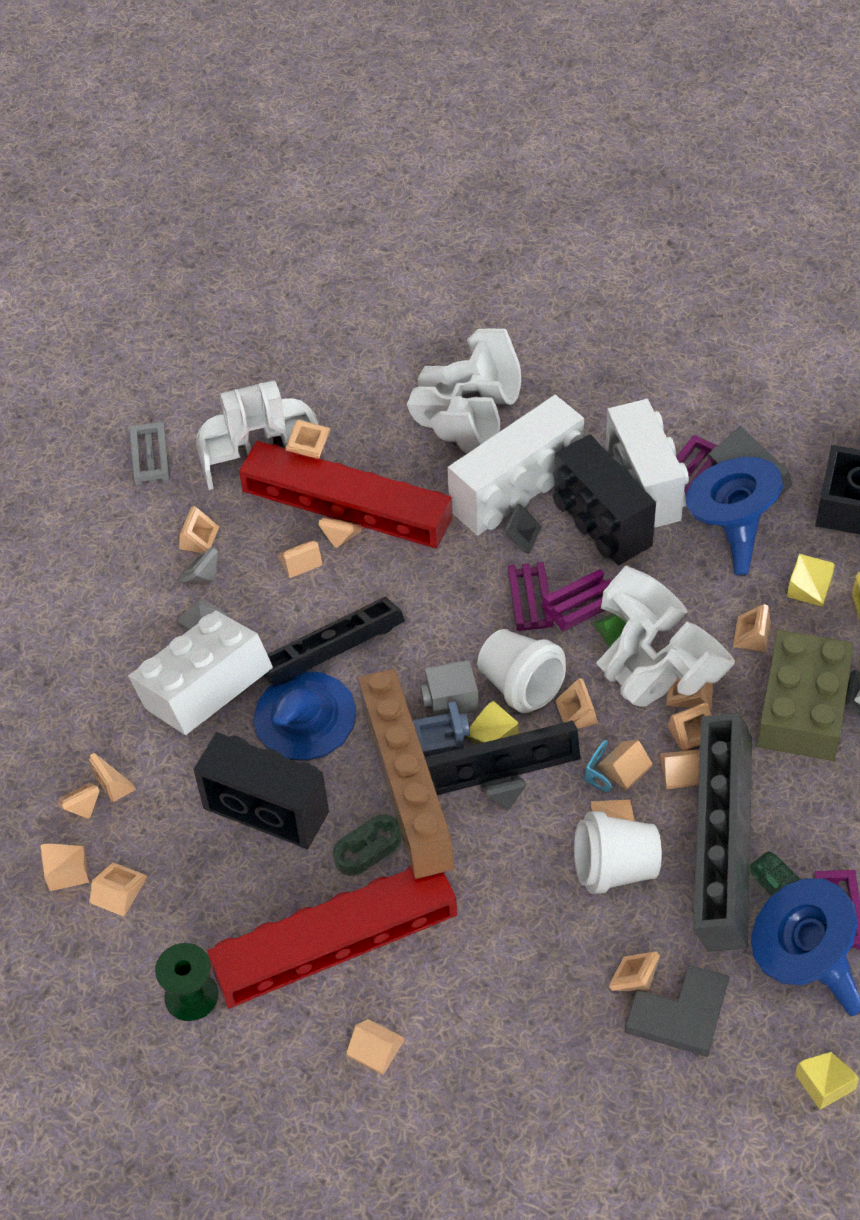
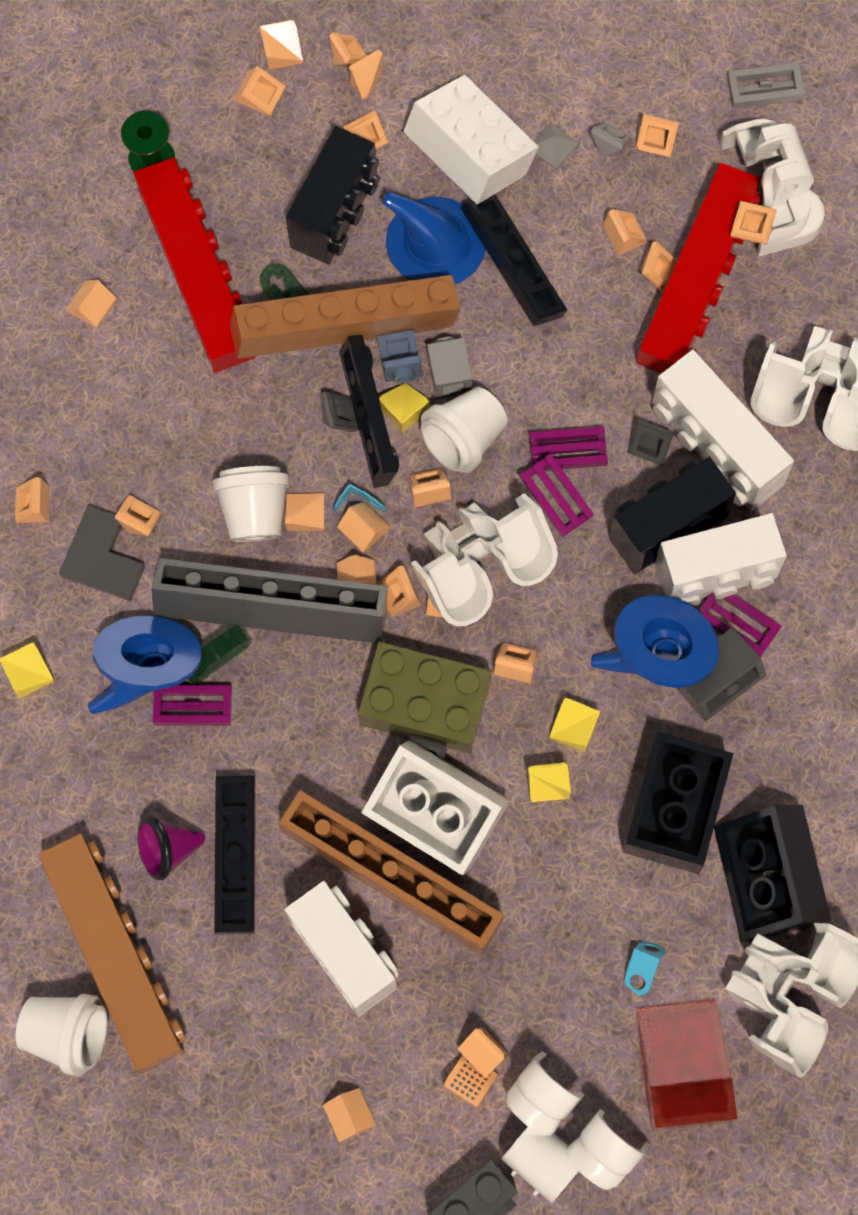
camera: 90 degrees right, 20 degrees up
(178, 777) = (368, 128): none -> light nougat slope
(624, 1090) = (32, 501): none -> light nougat slope

